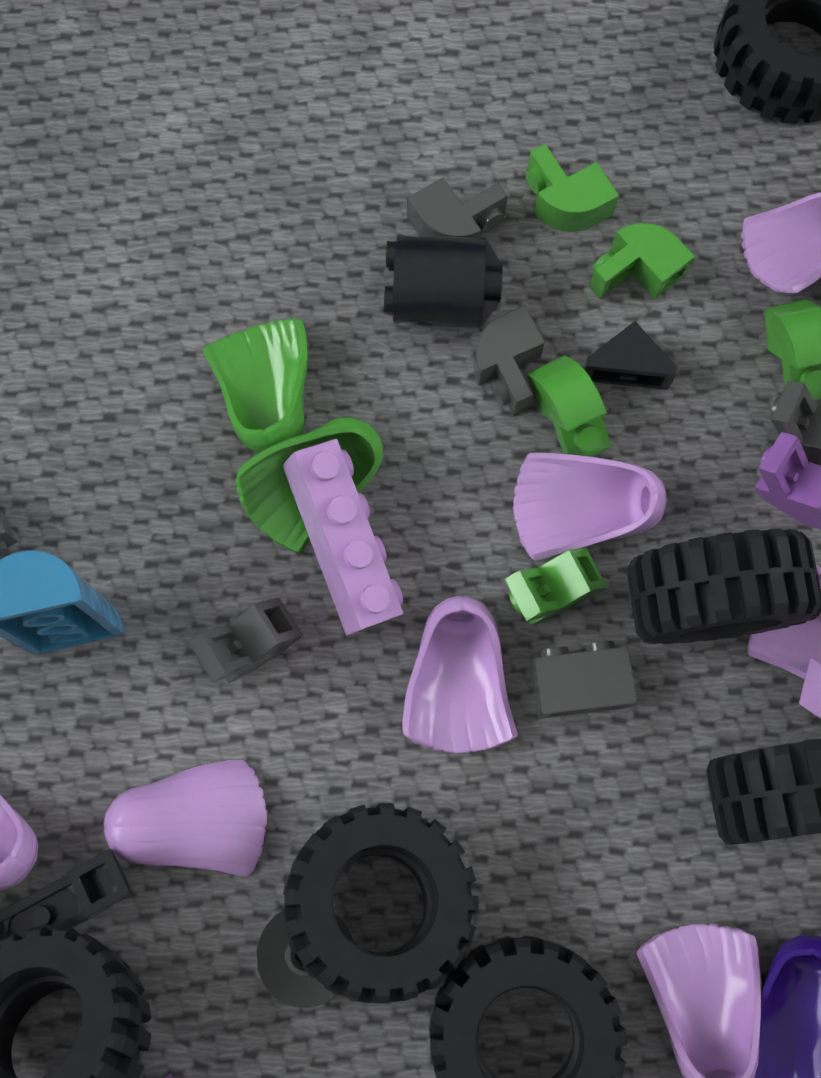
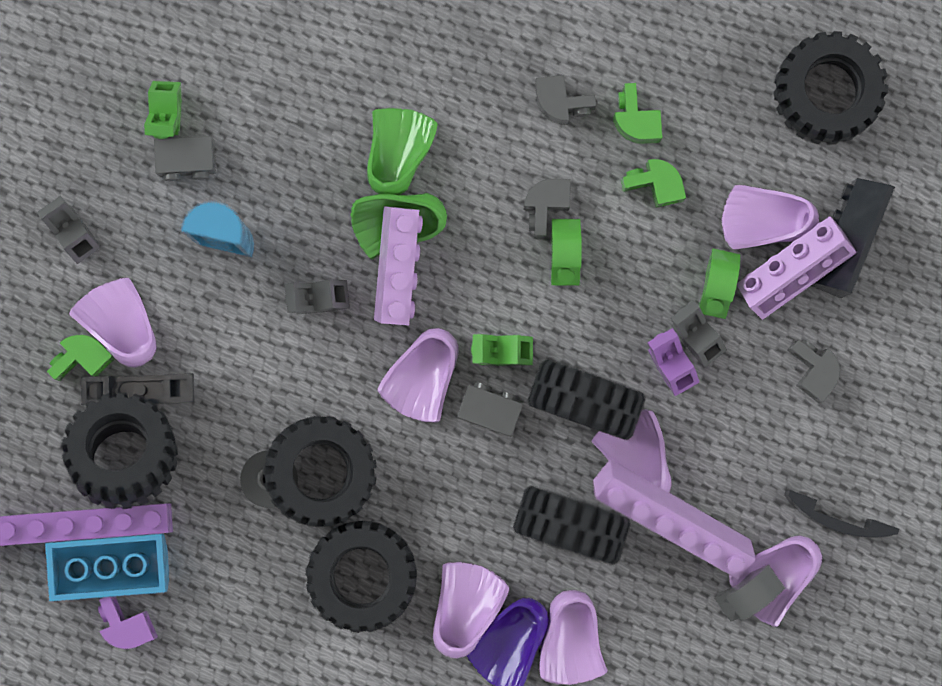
camera: 25 degrees right, 10 degrees up
(192, 820) = (243, 378): lavender hair -> none
(442, 280) = (529, 140): black cylinder -> none
(582, 502) = (543, 310): lavender hair -> none
(631, 361) = (616, 239): black slope -> none

